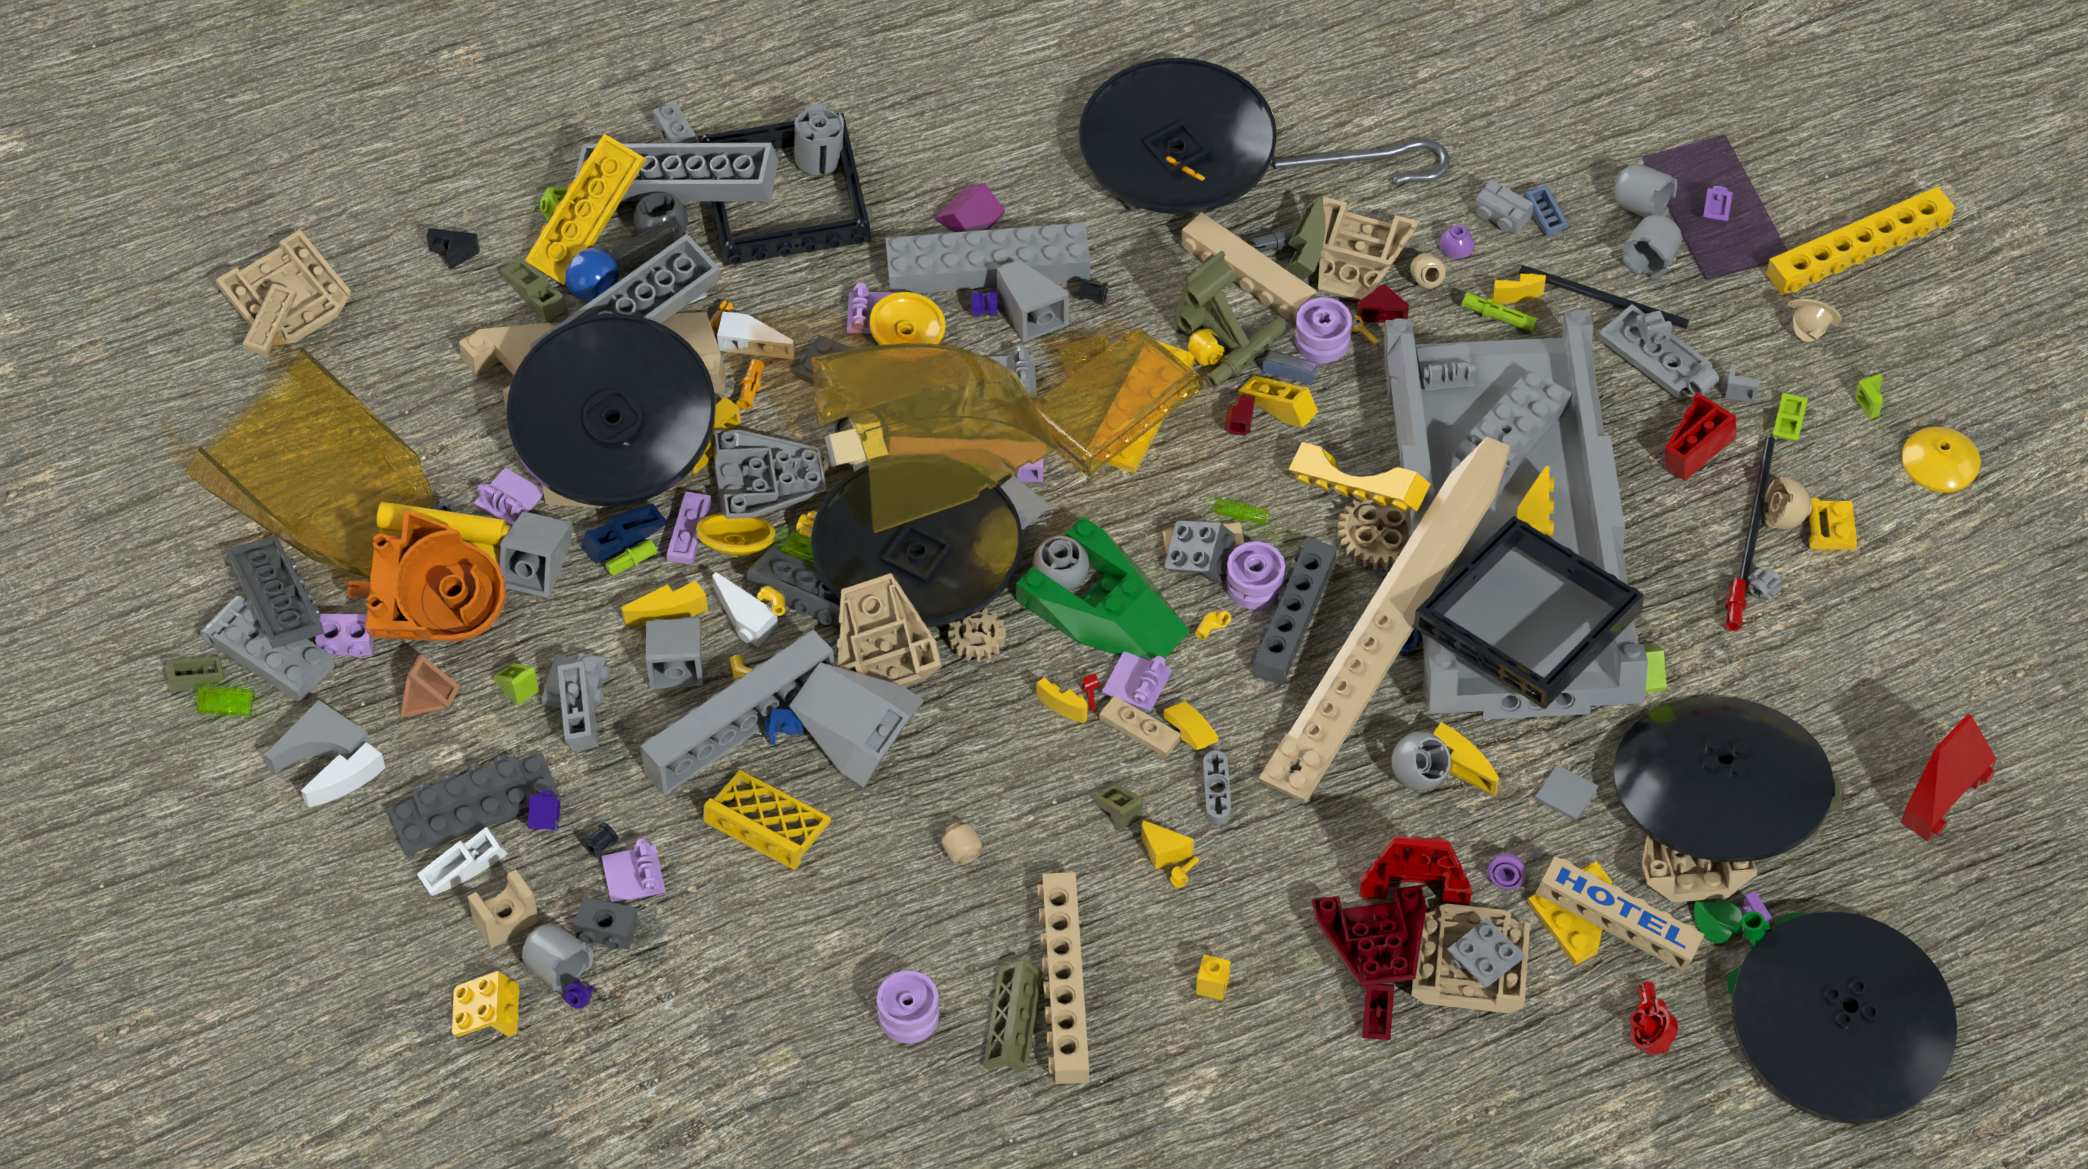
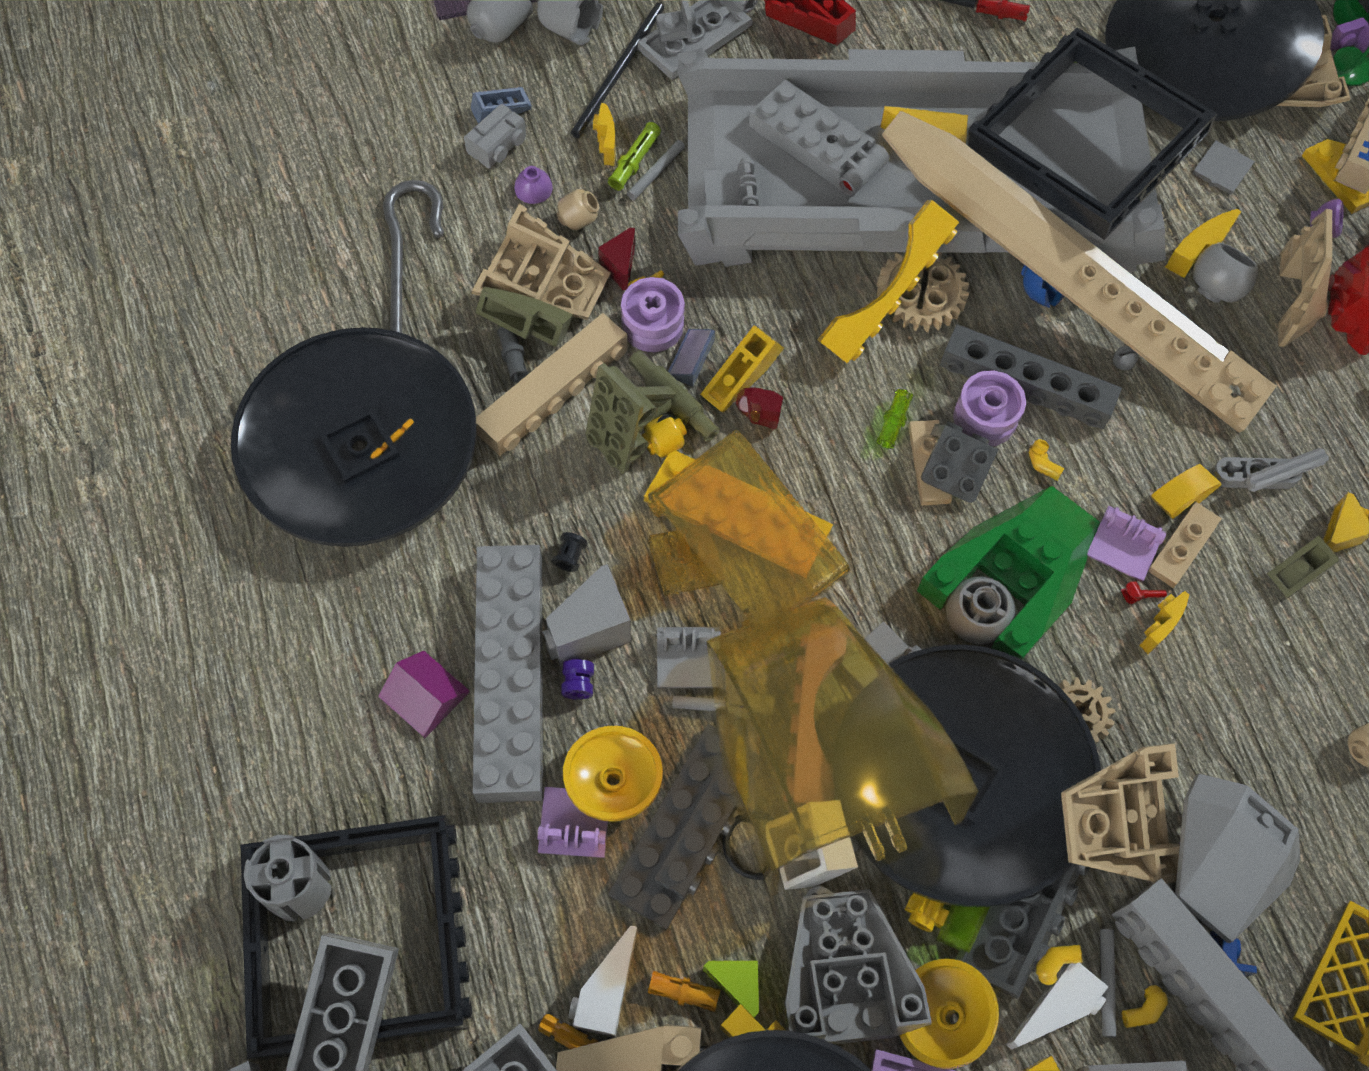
camera: 90 degrees left, 10 degrees up
(752, 649) = (1107, 960): none -> light grey bar
(754, 413) = (737, 981): none -> lime slope
(1215, 798) = (1286, 469): none -> light grey axle
(1416, 806) = (1310, 260): none -> tan wedge
(1481, 327) = (655, 170): none -> light grey bar

